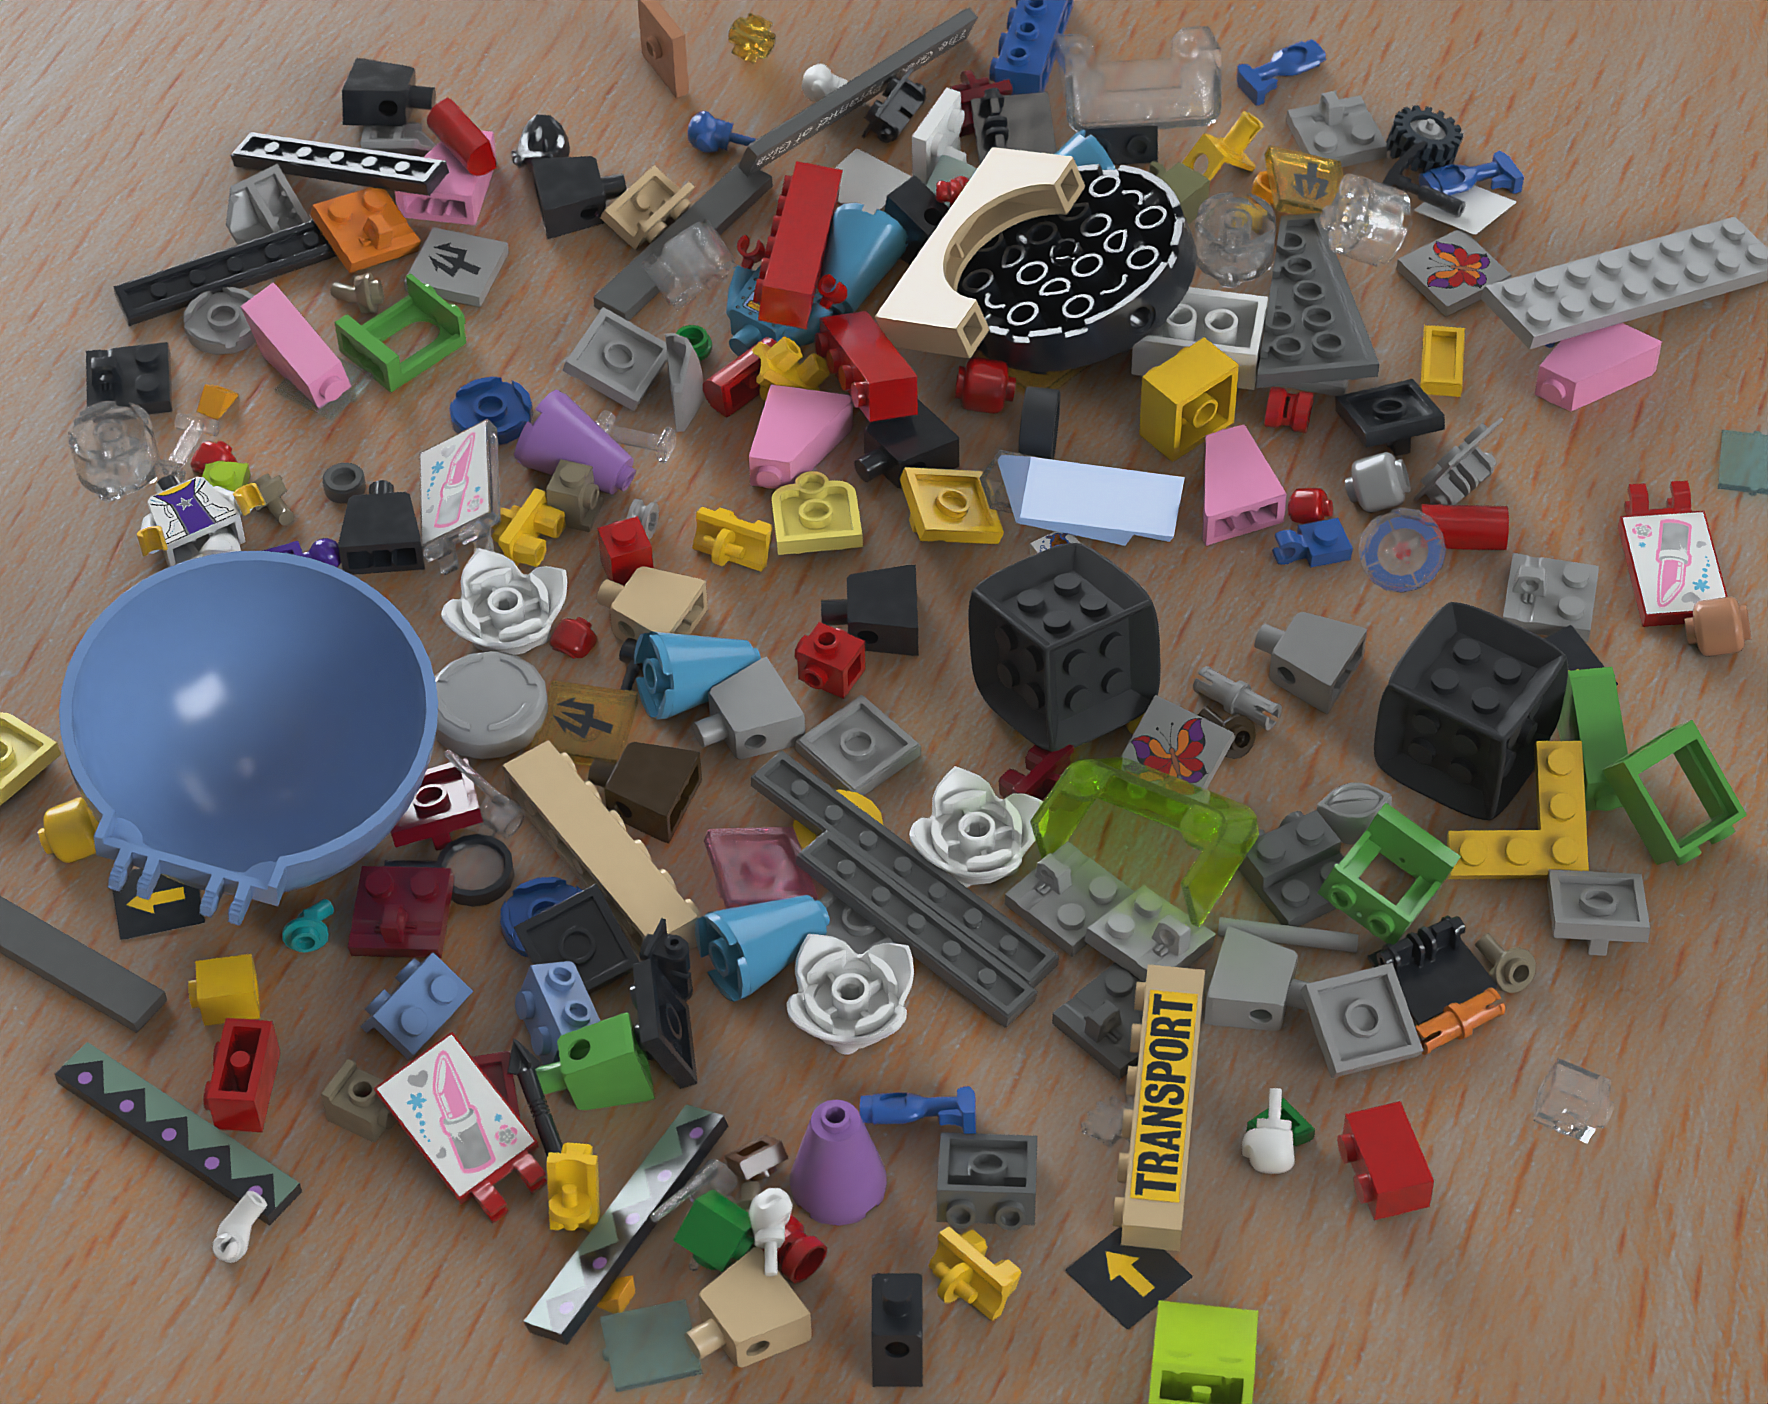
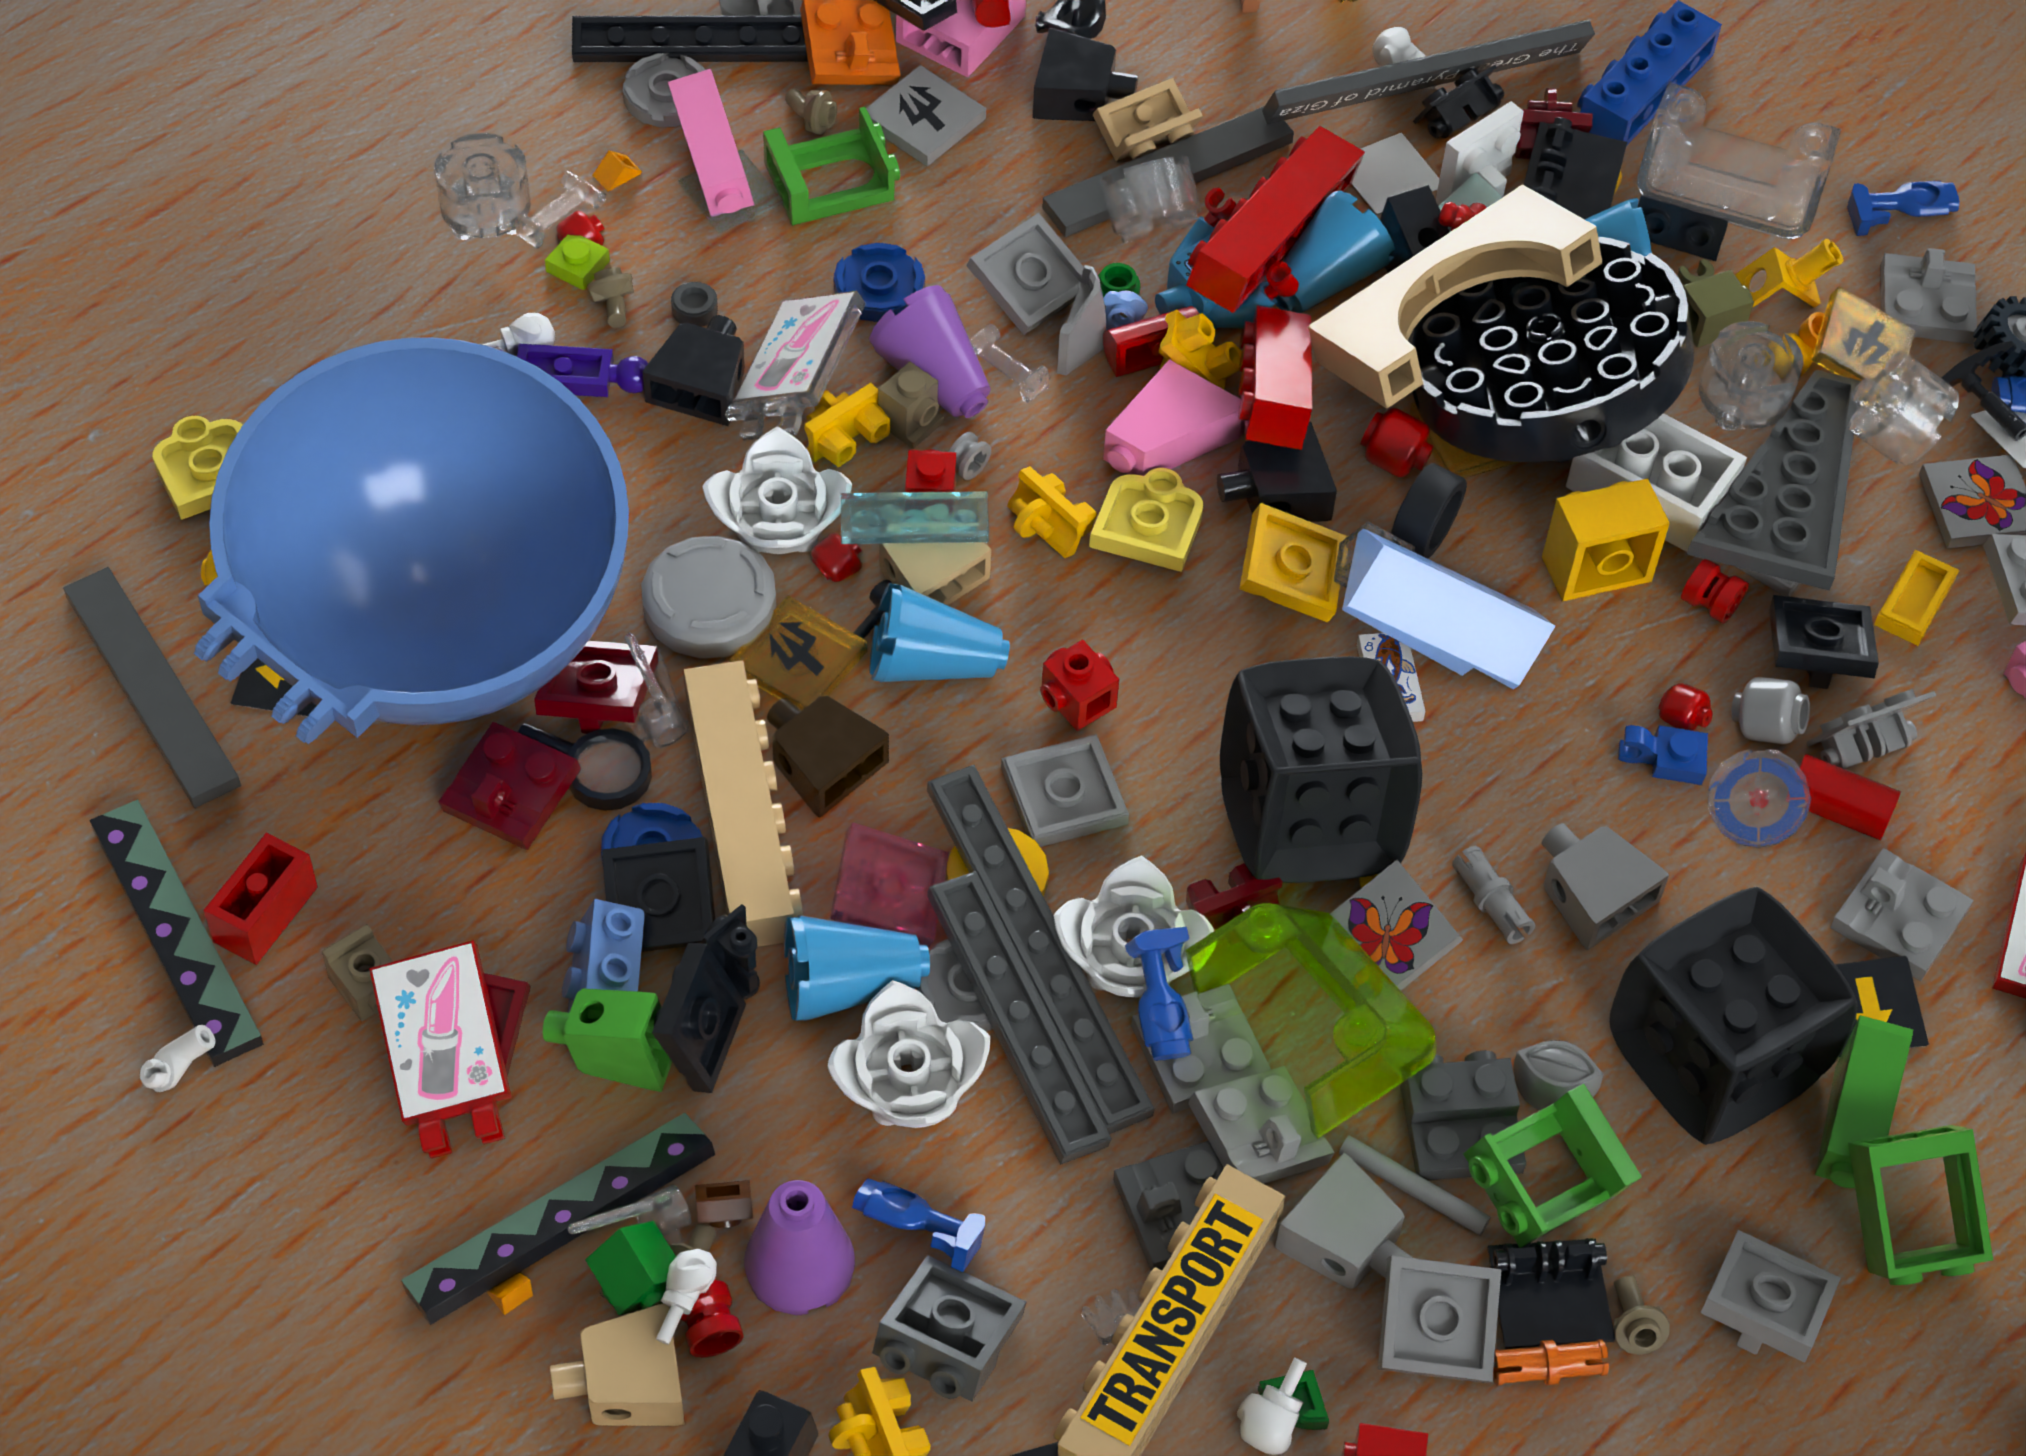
camera: 20 degrees right, 5 degrees up
(131, 376) = (543, 118): black hinge -> none
(191, 513) = (518, 283): torso -> none
(225, 989) = (296, 799): yellow brick -> none
(307, 930) = (405, 769): teal plate -> none
(418, 1005) = (474, 893): medium blue bracket -> none
(523, 1065) = (533, 1003): black piece -> none
(573, 1188) = (515, 1158): yellow hips -> none
(632, 577) = (914, 517): none -> clear light blue plate
(649, 1345) = (513, 1359): clear light blue piece -> none
(712, 133) = (1255, 65): blue piece -> none
(712, 354) = (1123, 302): none -> light blue plate
(752, 713) = (969, 710): light grey torso -> none
(879, 610) = (1160, 649): black torso -> none
(1029, 873) = (1161, 1008): none -> blue piece
(1238, 487) = (1612, 657): bright pink slope -> none
(1239, 725) = (1474, 929): dark brown plate -> none
(1561, 823) = (1777, 1184): yellow plate -> none

